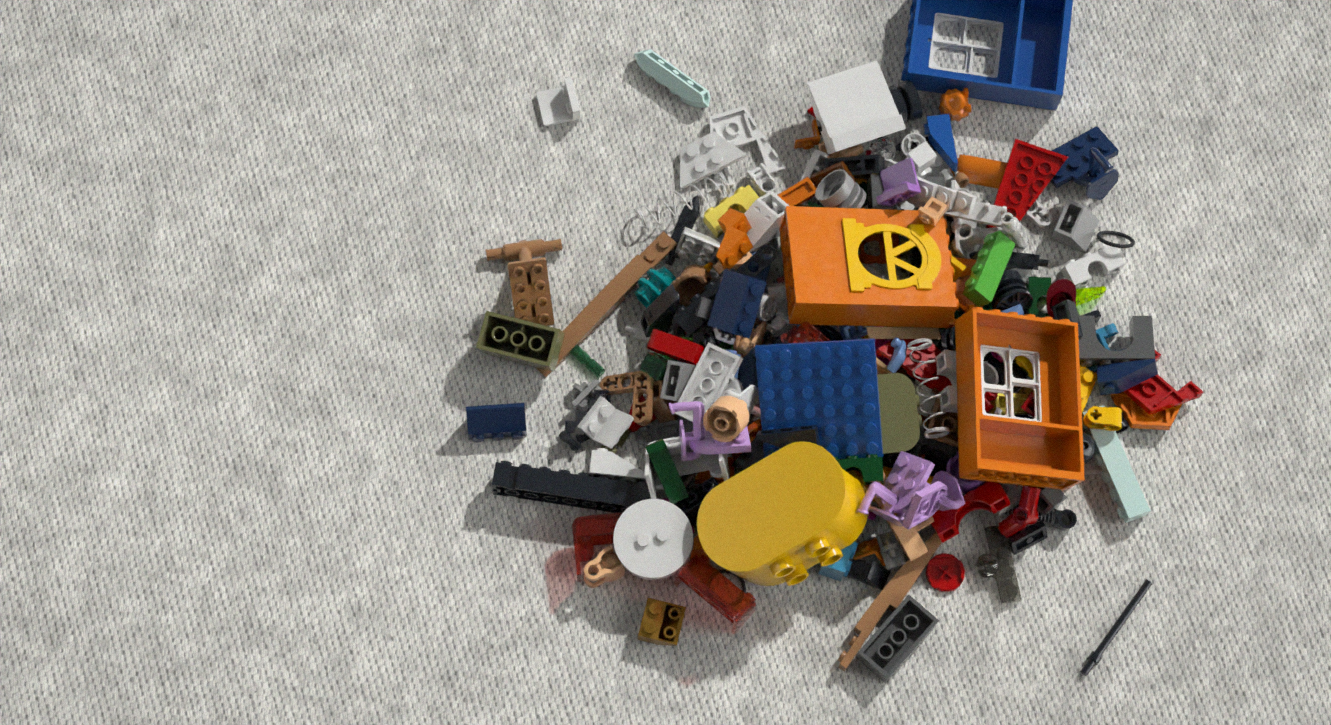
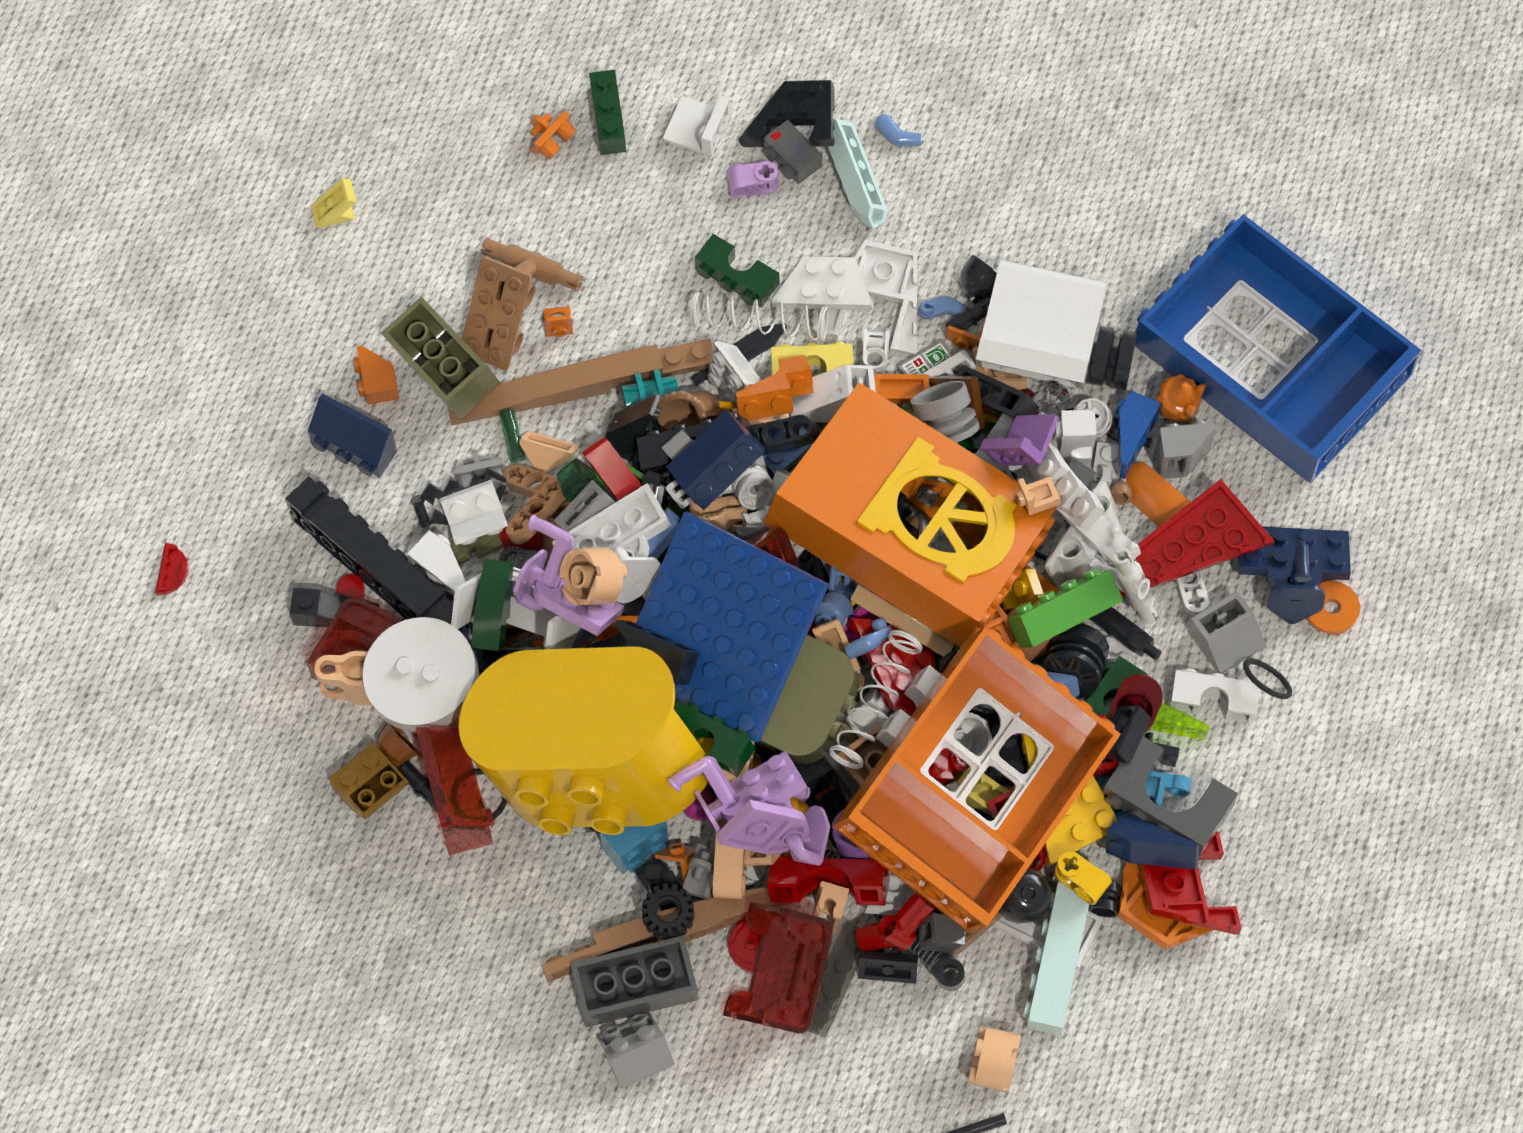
camera: 40 degrees right, 5 degrees down
(377, 285) = (335, 204): none -> light yellow slope
(445, 570) = (172, 570): none -> red tile
(472, 161) = (544, 143): none -> orange hips
(482, 375) = (377, 377): none -> orange slope
(509, 136) = (607, 112): none -> dark green arch
(554, 536) = (315, 607): none -> black slope
(561, 514) = (351, 586): none -> red tile
(567, 279) = (559, 325): none -> orange bracket
(610, 57) = (803, 105): none -> black wing
(614, 120) = (750, 180): none -> lavender piece
(615, 358) = (546, 451): none -> light nougat slope
(627, 88) = (792, 152): none -> dark grey brick
(633, 184) = (752, 284): none -> dark green arch
(658, 590) = (396, 745): none -> dark orange piece
(678, 41) = (894, 134): none -> medium blue arm
(692, 604) = (418, 783): none -> black pin
(780, 129) = (940, 306): none -> medium blue arm
(794, 102) = (977, 279): none -> black cylinder
(795, 169) = (926, 359): none -> tile
(802, 125) = (970, 315): none -> black axle
(899, 578) = (664, 895): none -> black tyre
(924, 677) = (635, 1049): none -> light grey slope
(975, 520) = (831, 901): none -> light nougat hinge
(977, 133) = (1182, 448): none -> light grey slope
(977, 578) = (785, 969): none -> clear red windscreen
(1125, 552) = (994, 1059): none -> light nougat brick
(1129, 175) = (1345, 618): none -> orange tile

